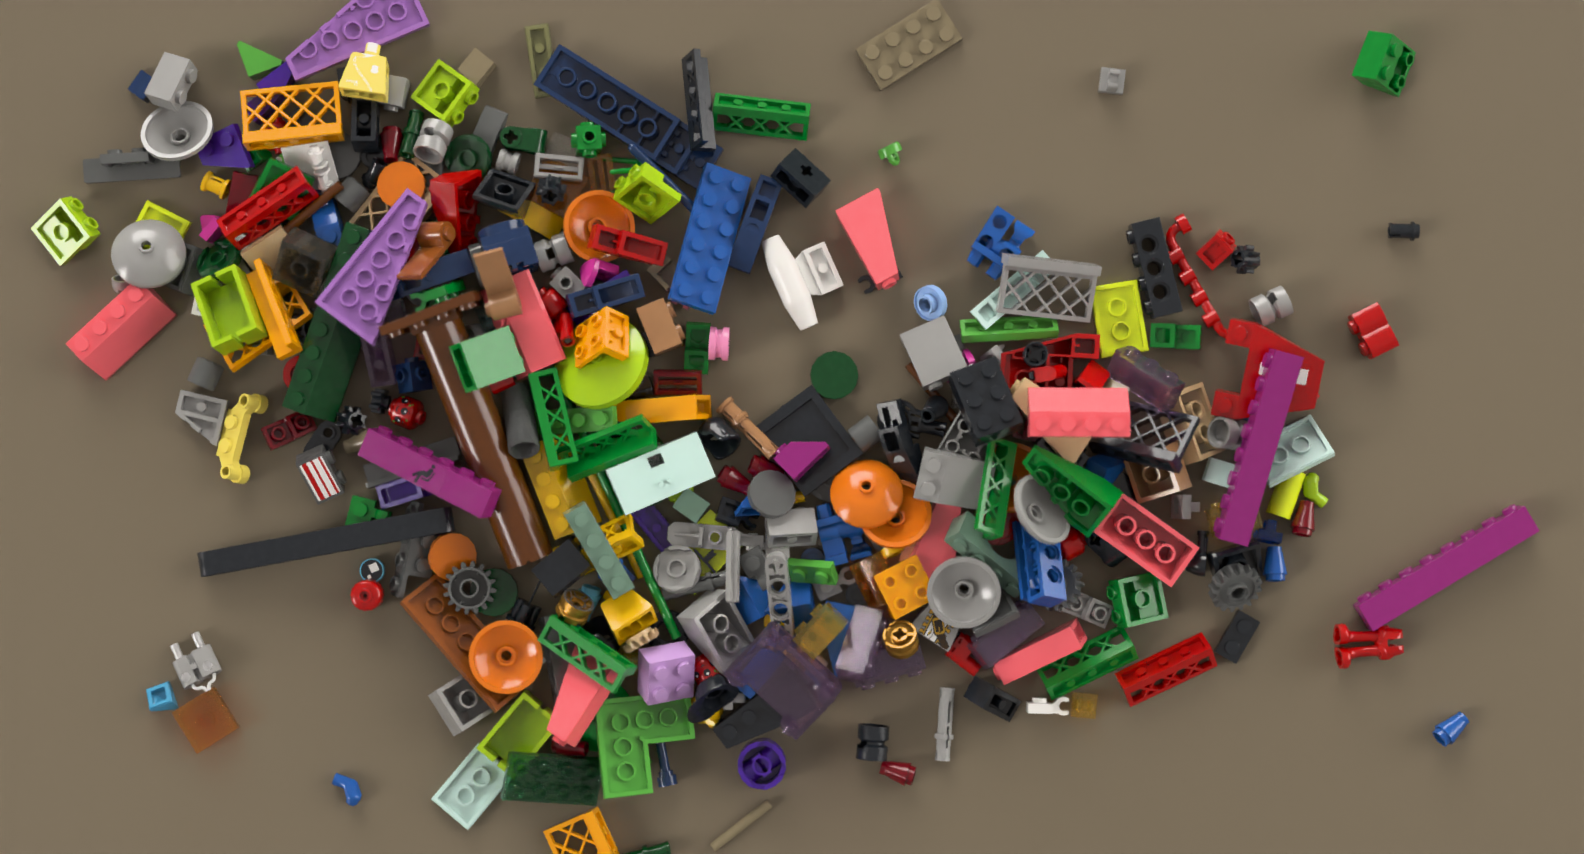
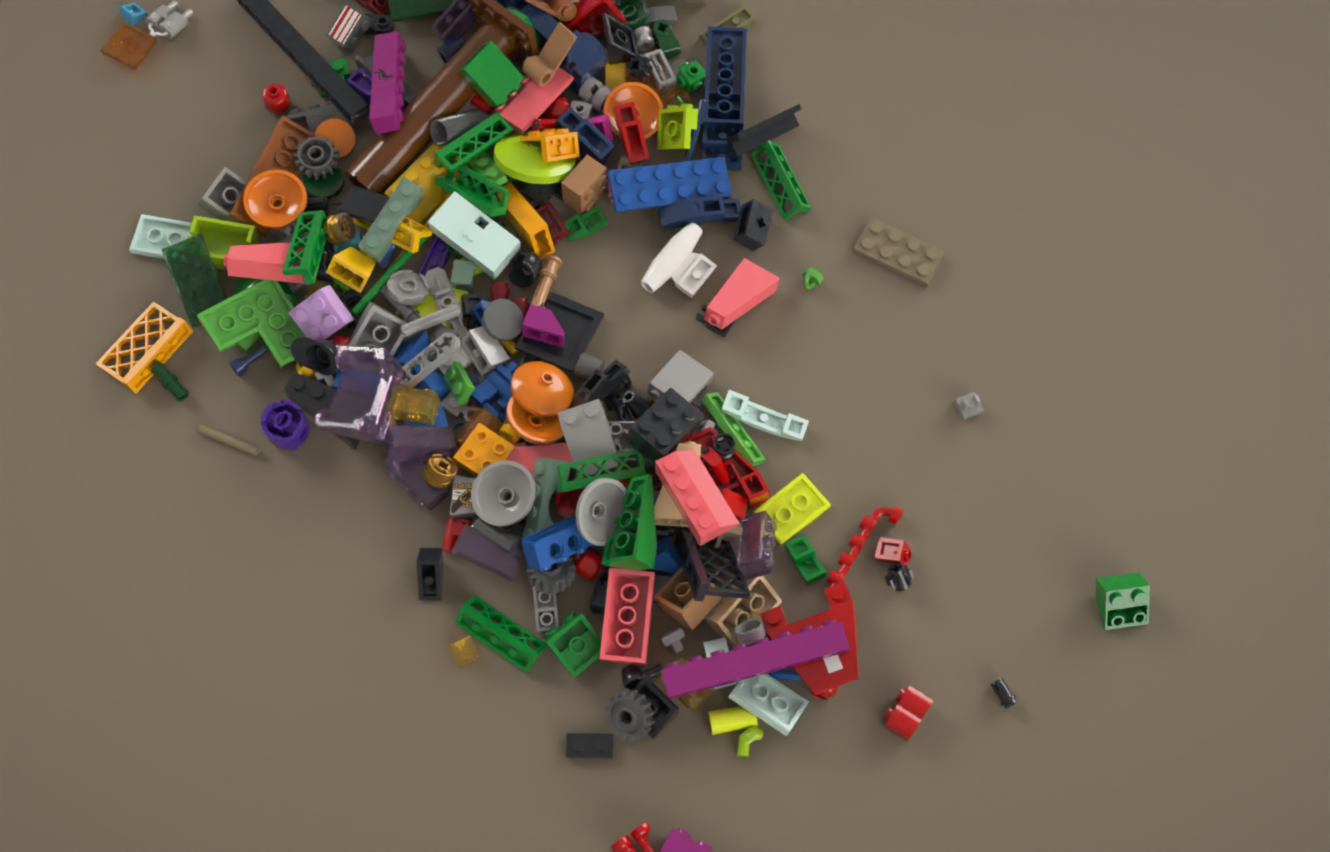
camera: 55 degrees right, 20 degrees down
(349, 414) = (395, 25): black gear -> none
(350, 787) = (123, 158): blue arm -> none
(372, 569) = (298, 97): tile -> none
(380, 401) = (423, 39): black plate -> none
(407, 412) = (425, 61): red head -> none
(581, 748) = (229, 283): dark red cone -> none
(640, 639) = (338, 282): tan gear -> none
(709, 556) = (427, 306): black piece -> none
(719, 343) = (596, 232): bright pink wheel -> none
(834, 375) = (621, 326): dark green tile -> none
(872, 742) = (345, 499): black wheel -> none
(898, 771) = (332, 535): dark red cone -> none
(930, 302) = (718, 361): light blue plate -> none
(944, 729) = (365, 559): light grey pin -> none
(991, 244) = (789, 381): blue hips -> none
(1040, 706) = (445, 614): white plate -> none
(1041, 651) = (491, 589): coral slope -> none
(1052, 267) = (798, 427): light grey fence -> none
(1153, 231) = (827, 538): black brick -> none
(1165, 666) = (531, 696): red fence -> none
(1268, 533) = (690, 721): clear blue tile -> none
(1272, 305) = (875, 617): light grey wheel -> none
(1274, 565) = (667, 742): blue cone -> none
(1303, 522) = (717, 745): dark red cone -> none

